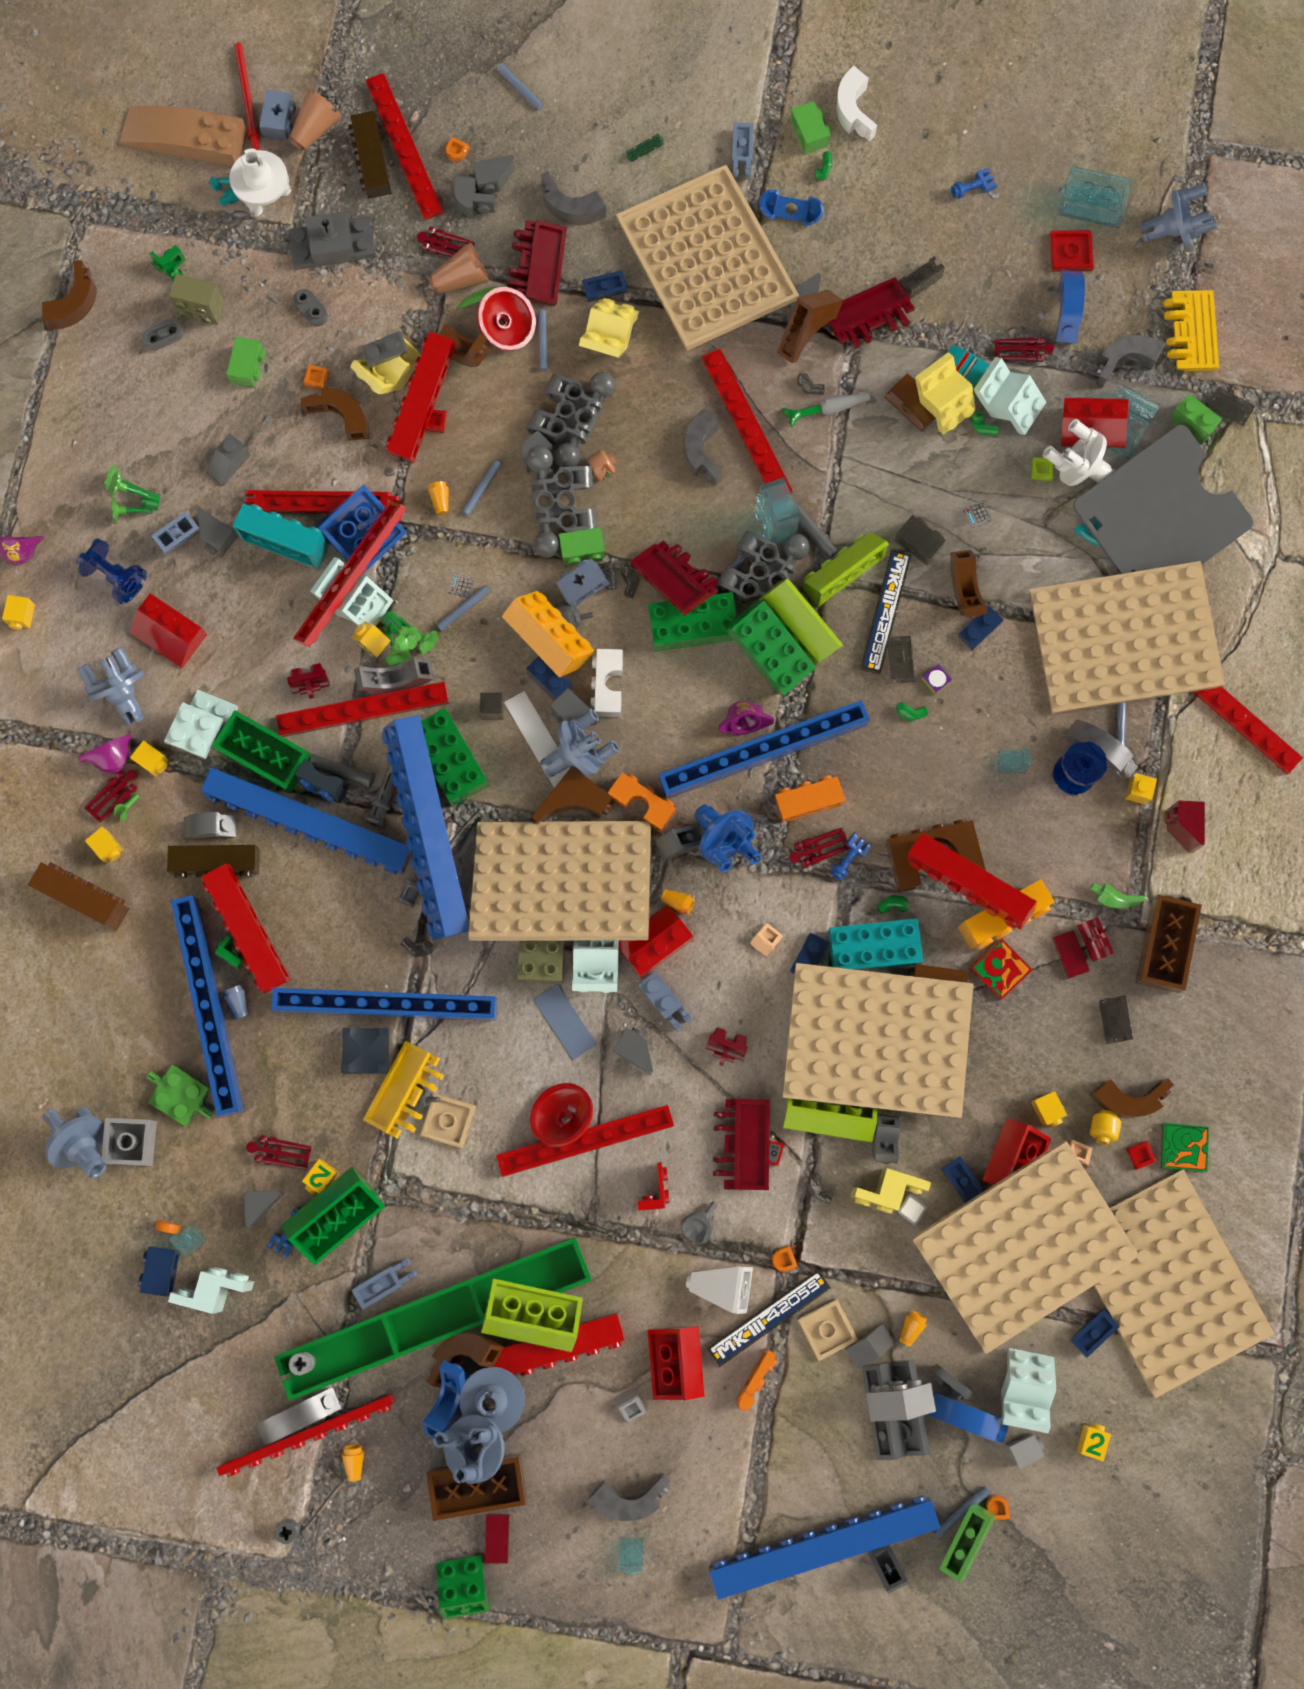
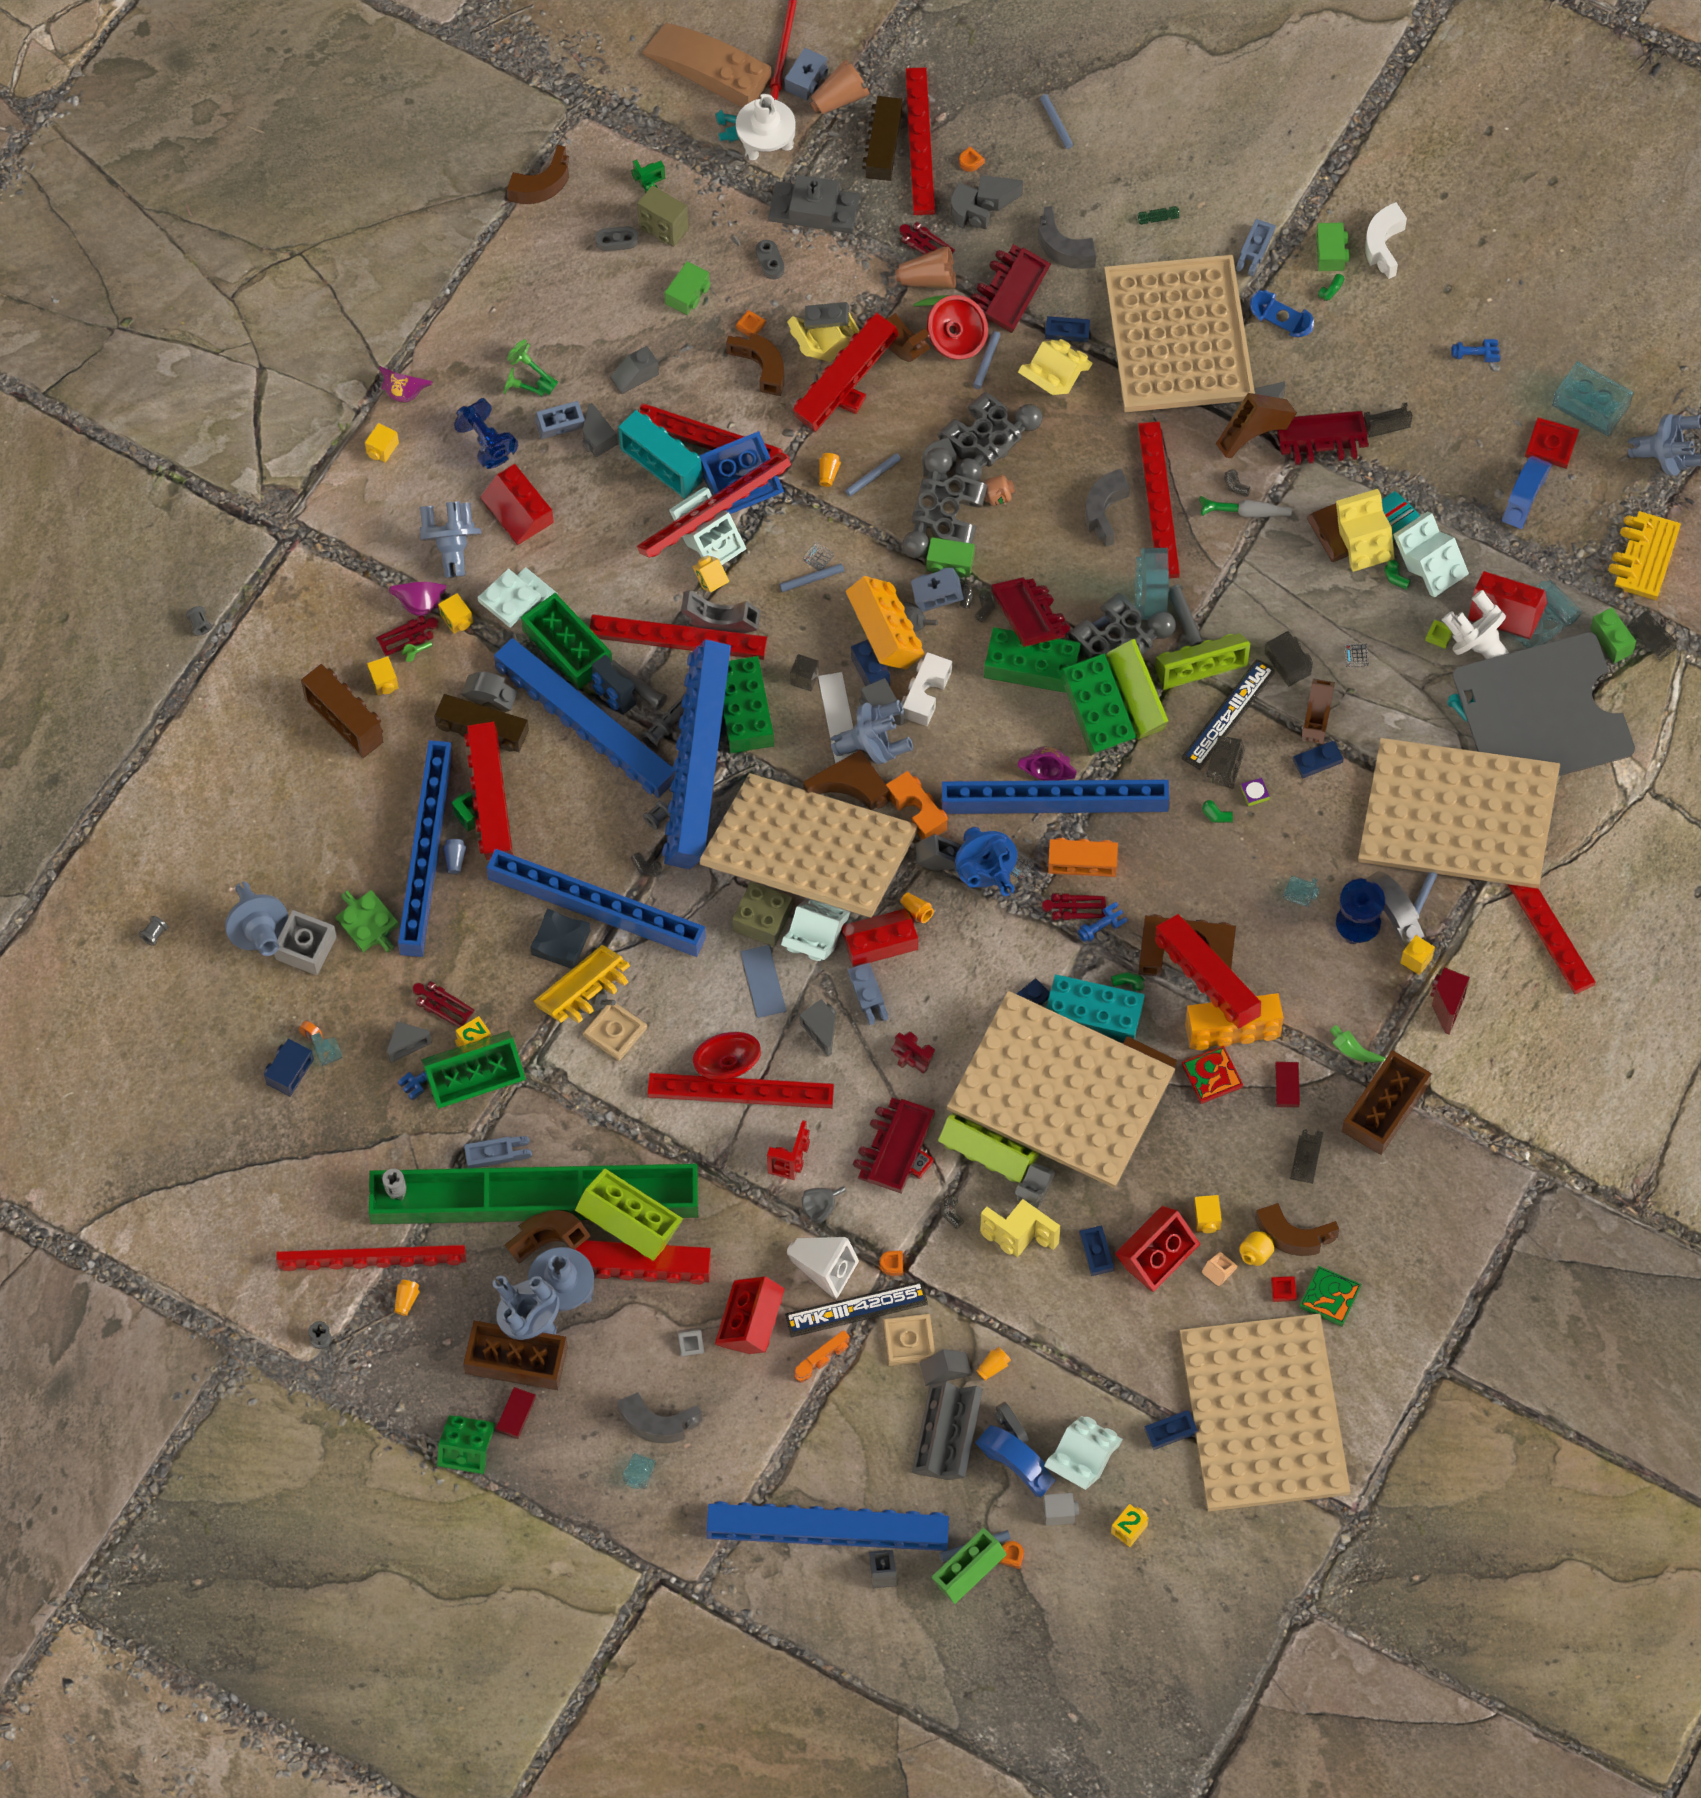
camera: 20 degrees right, 15 degrees down
(211, 1290) = (332, 1096): light aqua bracket -> none
(298, 1416) = (369, 1232): flat silver arch -> none
(308, 682) = (635, 594): dark red hips -> none
(407, 638) = (746, 579): bright green plant -> none
(447, 1407) = (517, 1271): blue arch -> none
(766, 939) = (990, 972): light nougat slope -> none
(900, 1401) = (953, 1410): light grey brick -> none
(911, 1210) = (1034, 1260): white slope -> none
(1025, 1246) = (1131, 1321): tan plate -> none
(1048, 349) = (1489, 524): dark red piece -> none
(1095, 939) = (1315, 1075): dark red hips -> none
(1131, 348) = (1569, 550): flat silver arch -> none

